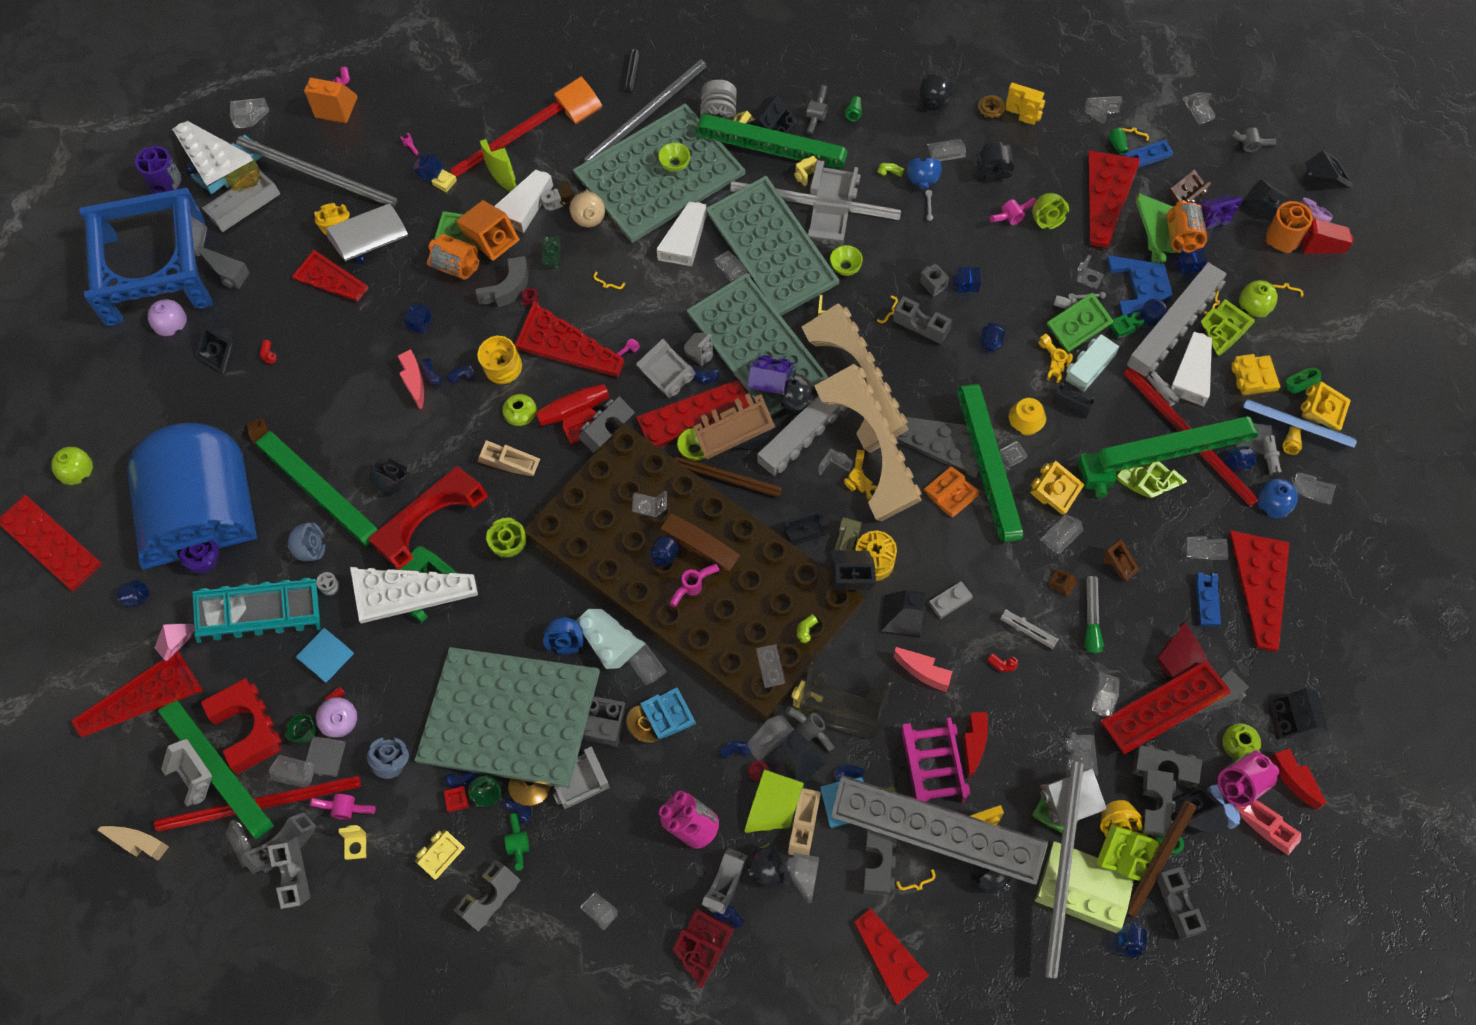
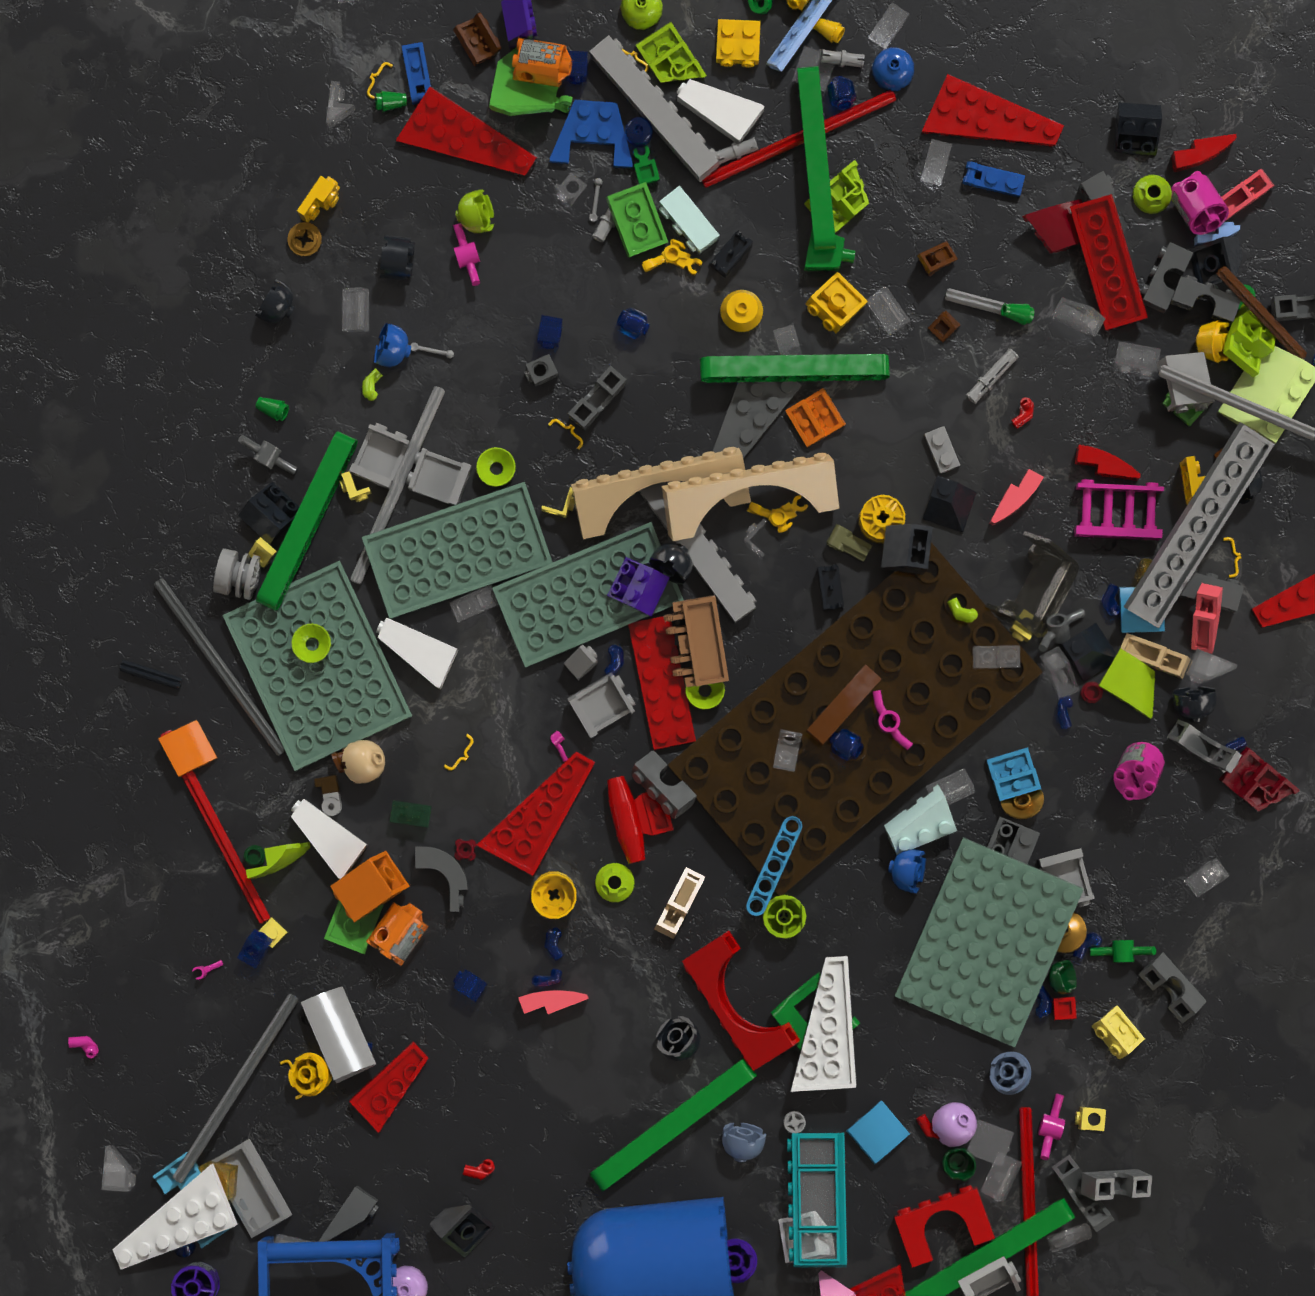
camera: 80 degrees left, 20 degrees up
(257, 429) = (581, 1188): reddish brown slope -> none
(330, 100) = (123, 1059): orange slope -> none
(554, 517) = (782, 858): none -> dark azure beam
(730, 477) = (748, 660): reddish brown axle -> none
(851, 860) = (1206, 617): none -> coral slope

